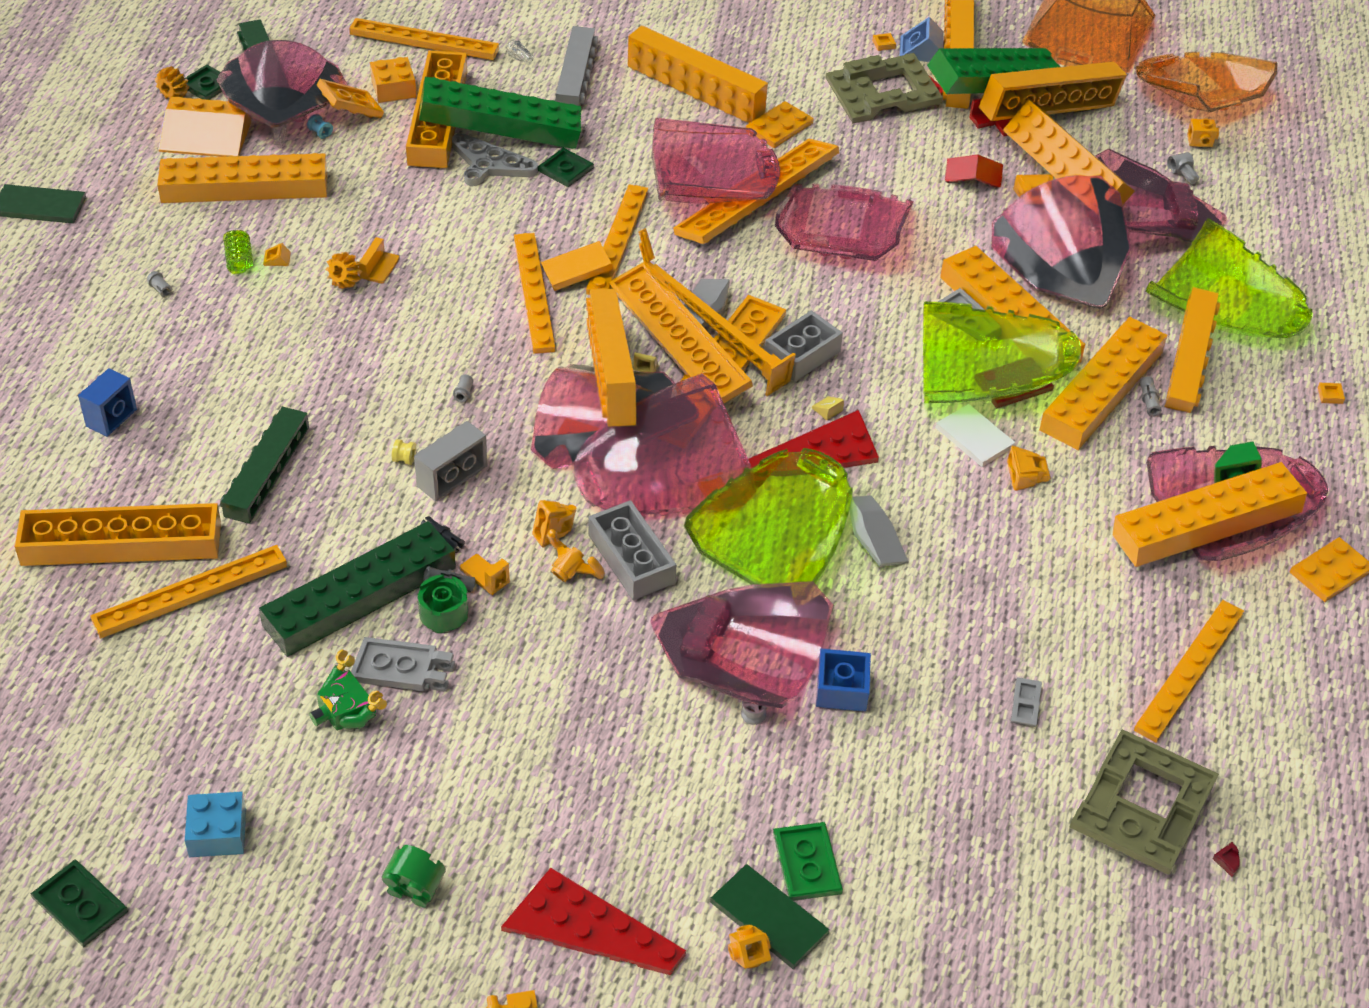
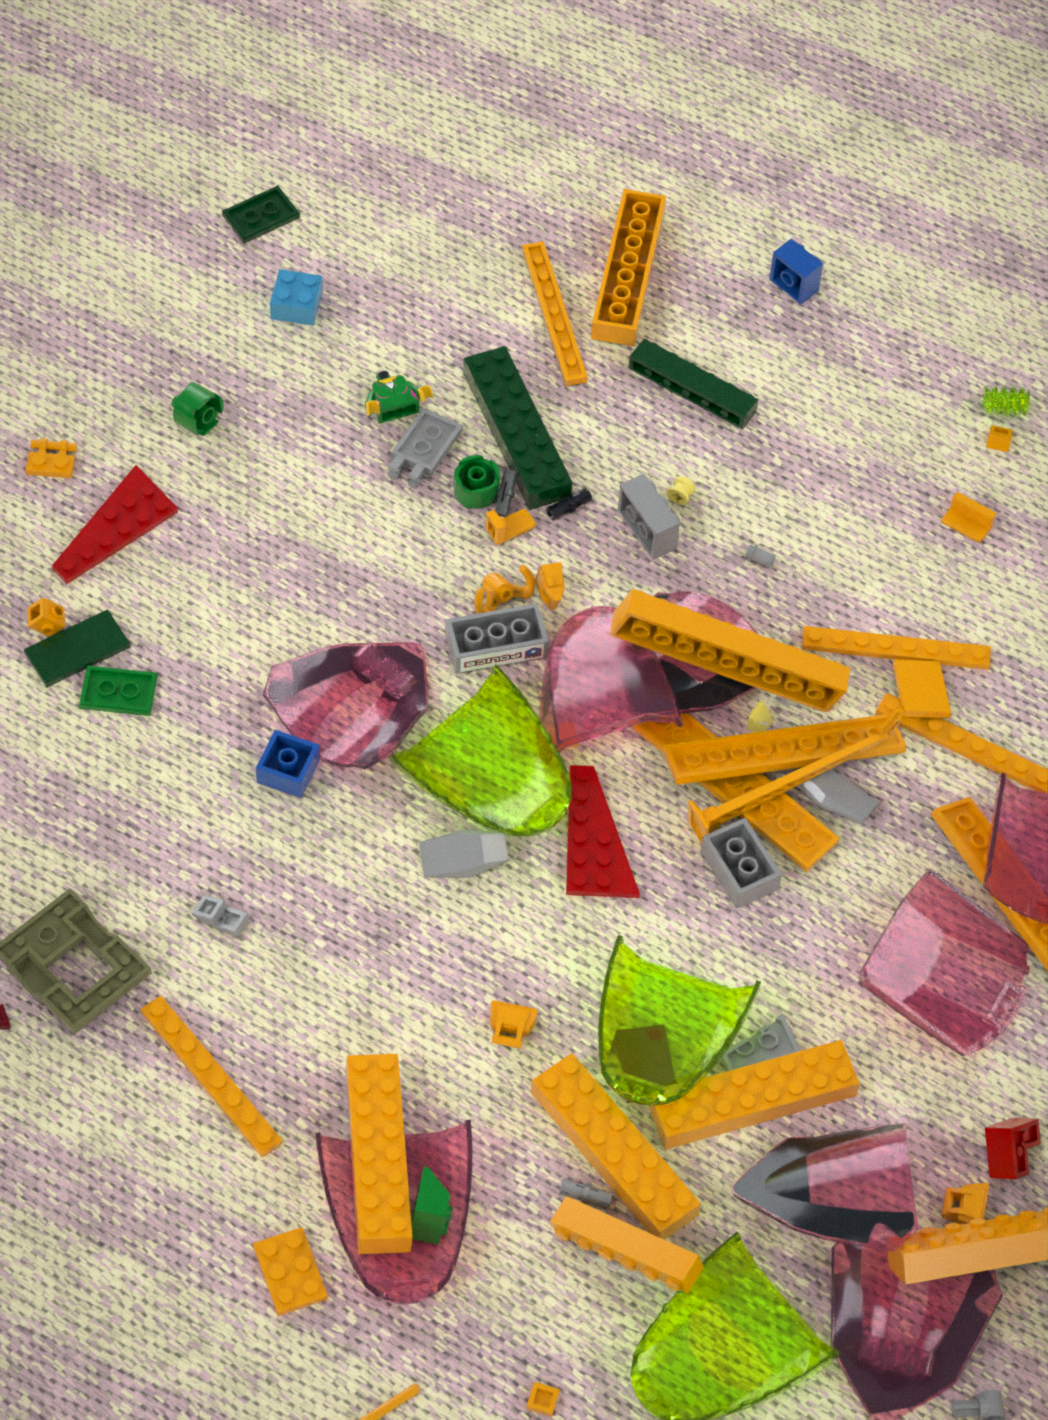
camera: 105 degrees right, 10 degrees up
(156, 280) = (979, 333): light grey pin -> none
(343, 270) = (951, 479): light orange gear -> none
(829, 407) = (654, 869): light yellow slope -> none
(975, 435) = (571, 996): white tile -> none

